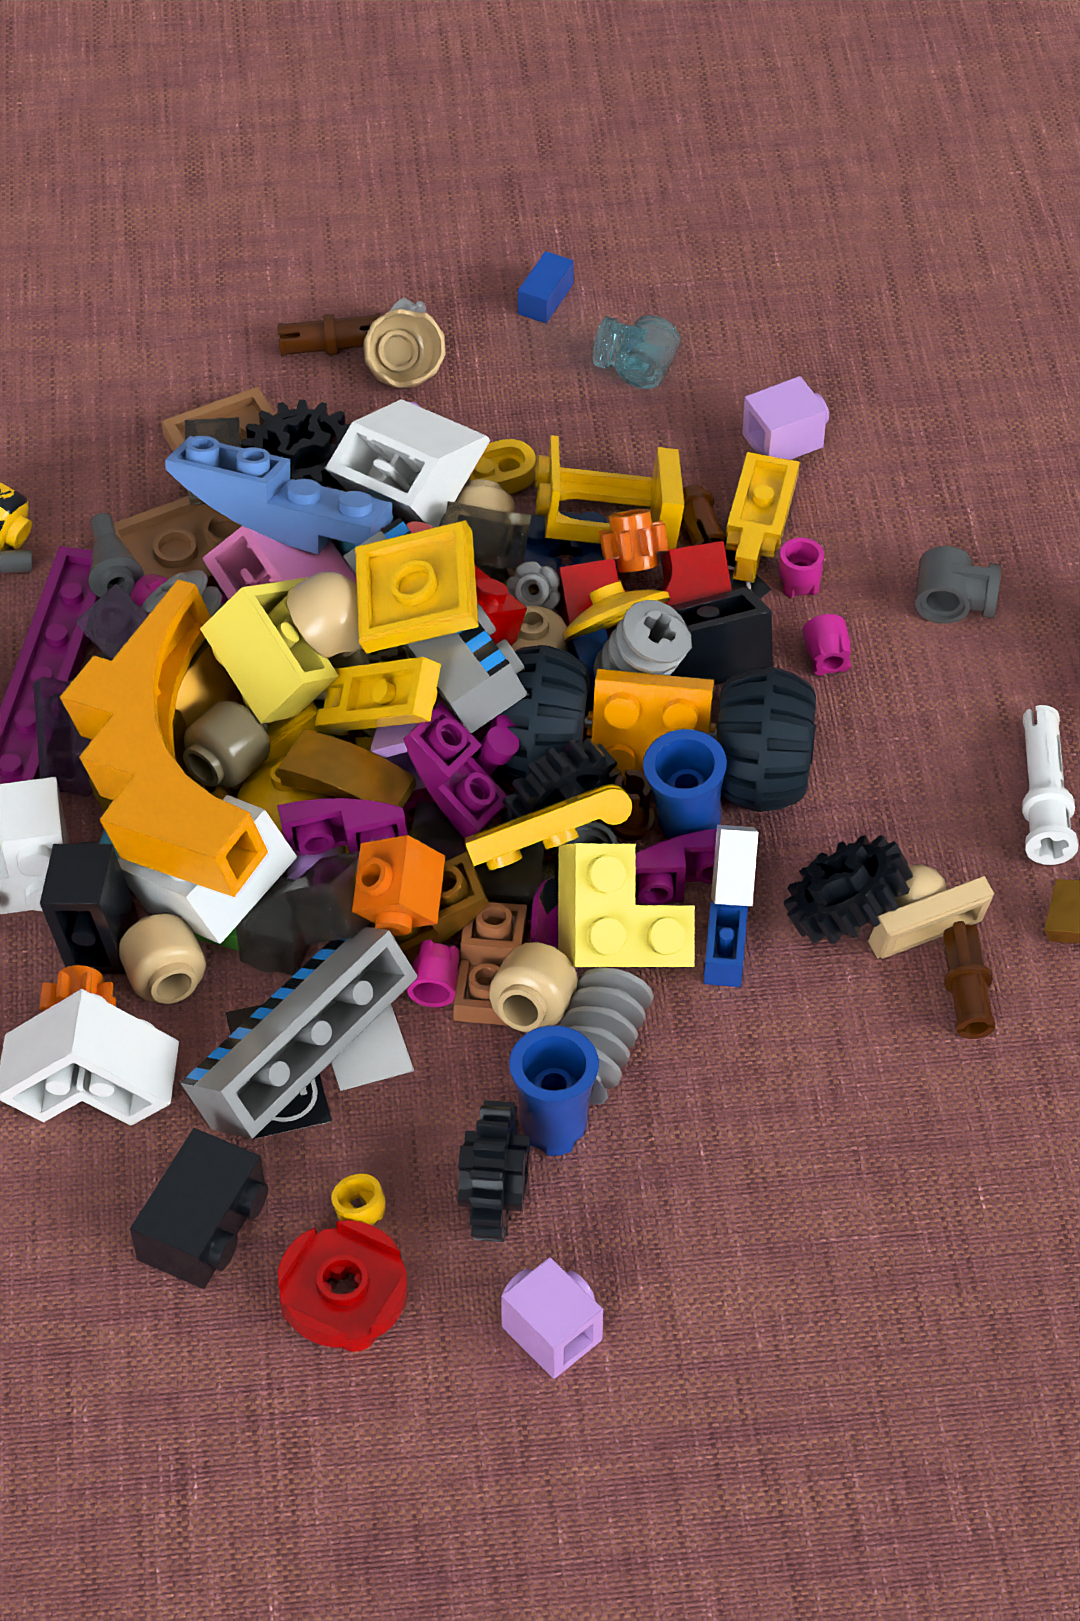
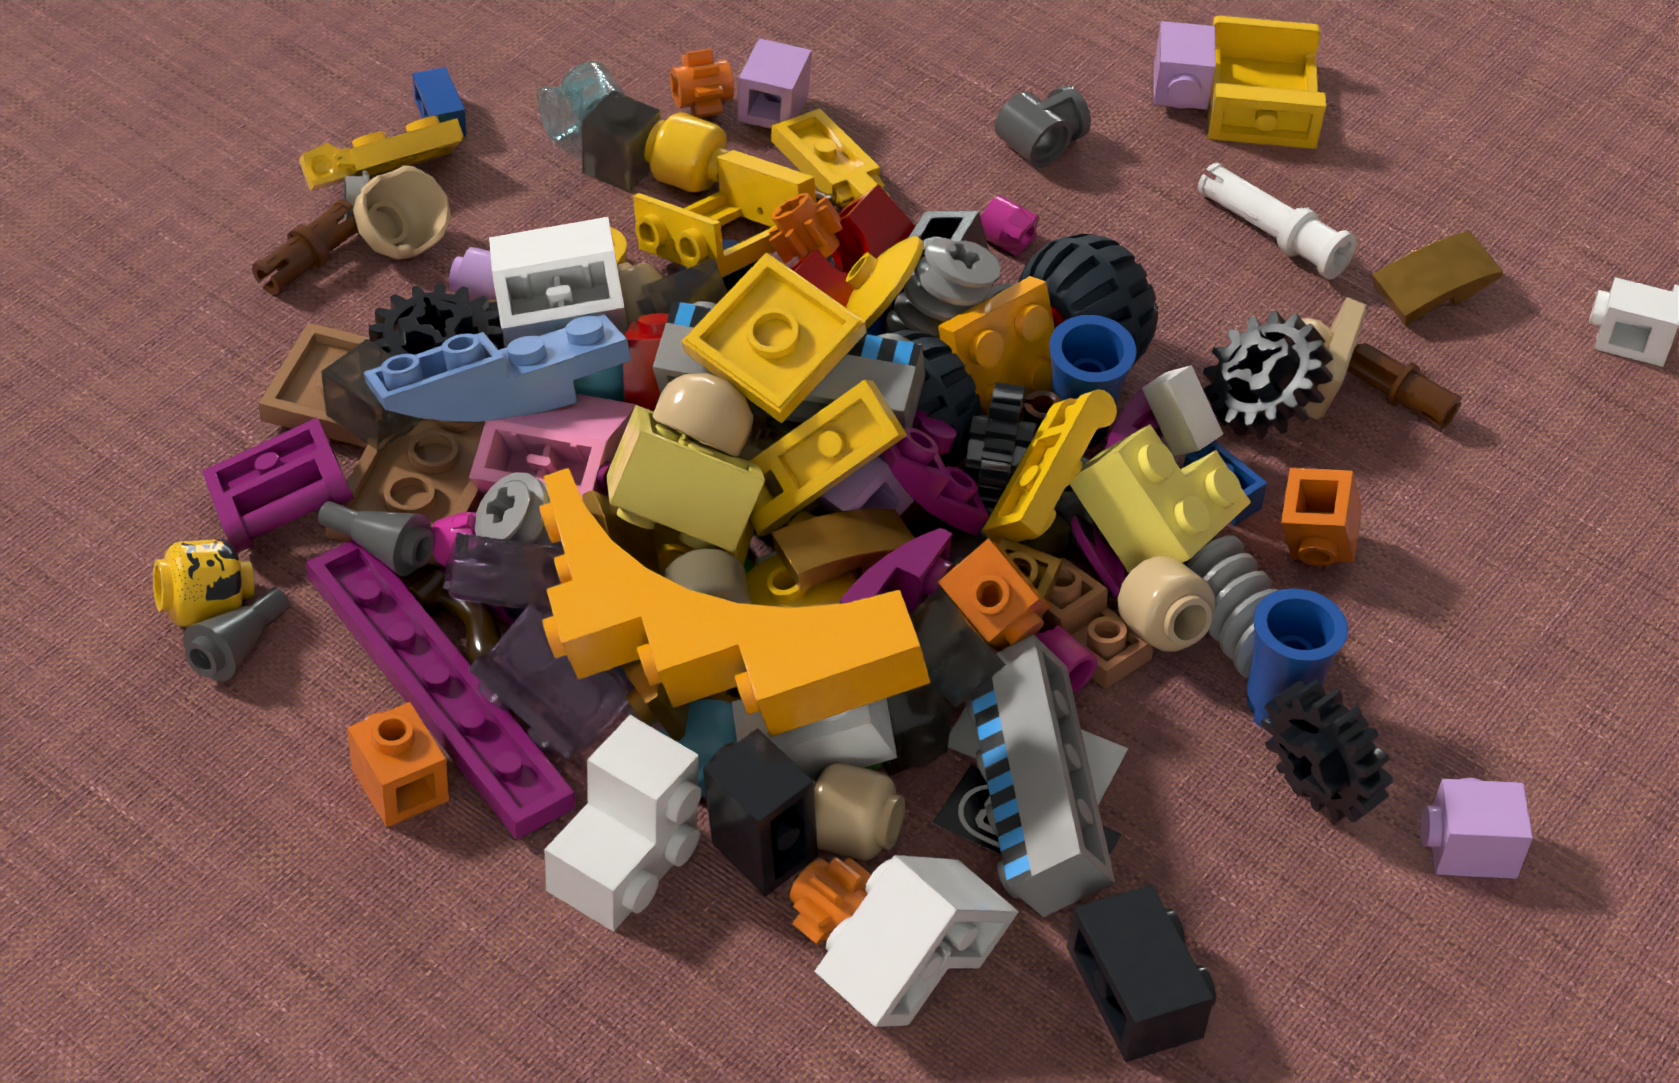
camera: 50 degrees left, 5 degrees down
(90, 469) = (270, 471): none -> magenta plate
(348, 1318) = (1304, 970): red plate -> none
(367, 1190) = (1241, 865): yellow hinge -> none
(450, 296) = (377, 154): none -> yellow hinge
(622, 393) = (616, 140): none -> clear smoke brick
(654, 423) = (685, 152): none -> yellow head
(732, 382) = (702, 83): none -> orange gear
(738, 1019) = (1321, 516): none -> orange brick
(801, 566) = (917, 183): dark pink hose -> none

